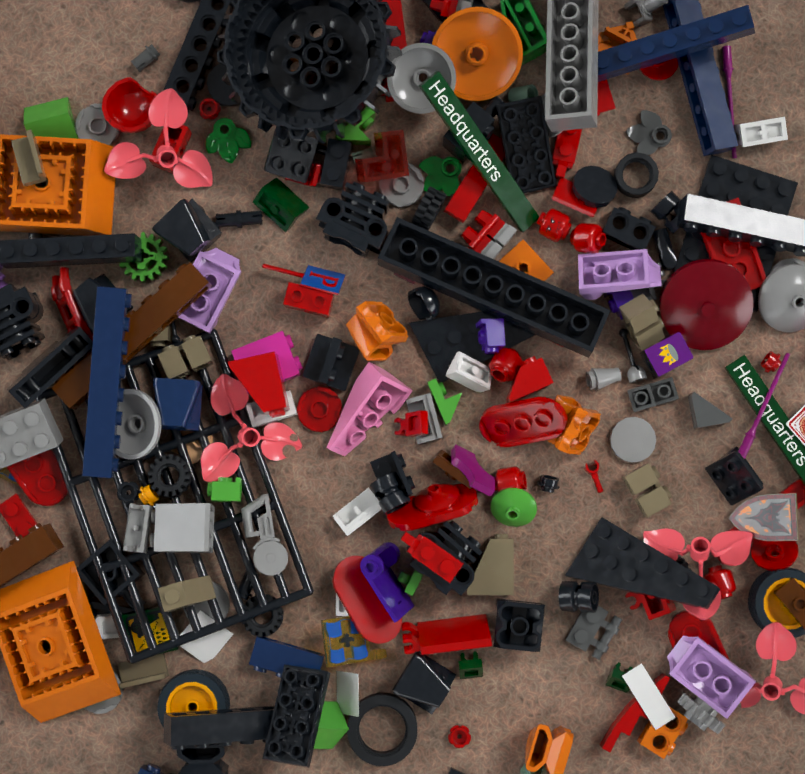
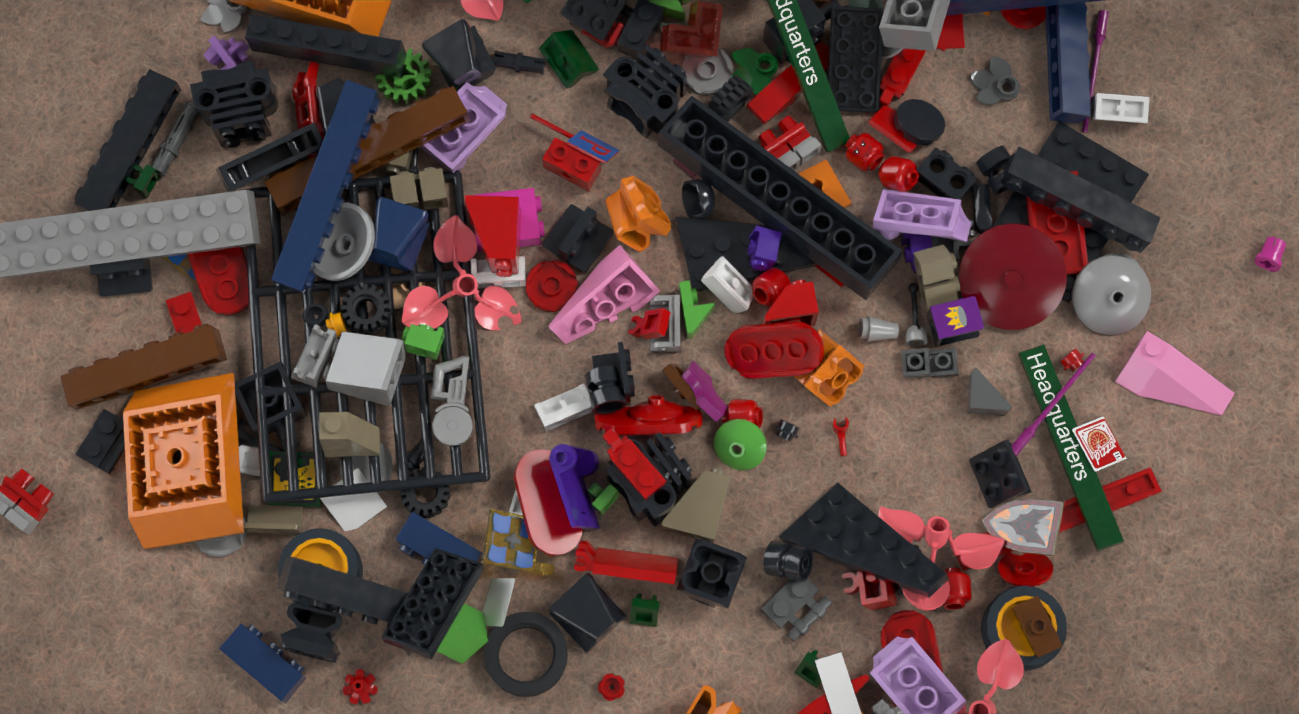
camera: 15 degrees right, 10 degrees down
(632, 439) = (894, 406): light grey tile -> none
(650, 165) = (974, 103): black tyre -> none
(653, 500) = (894, 451): dark tan piece -> none

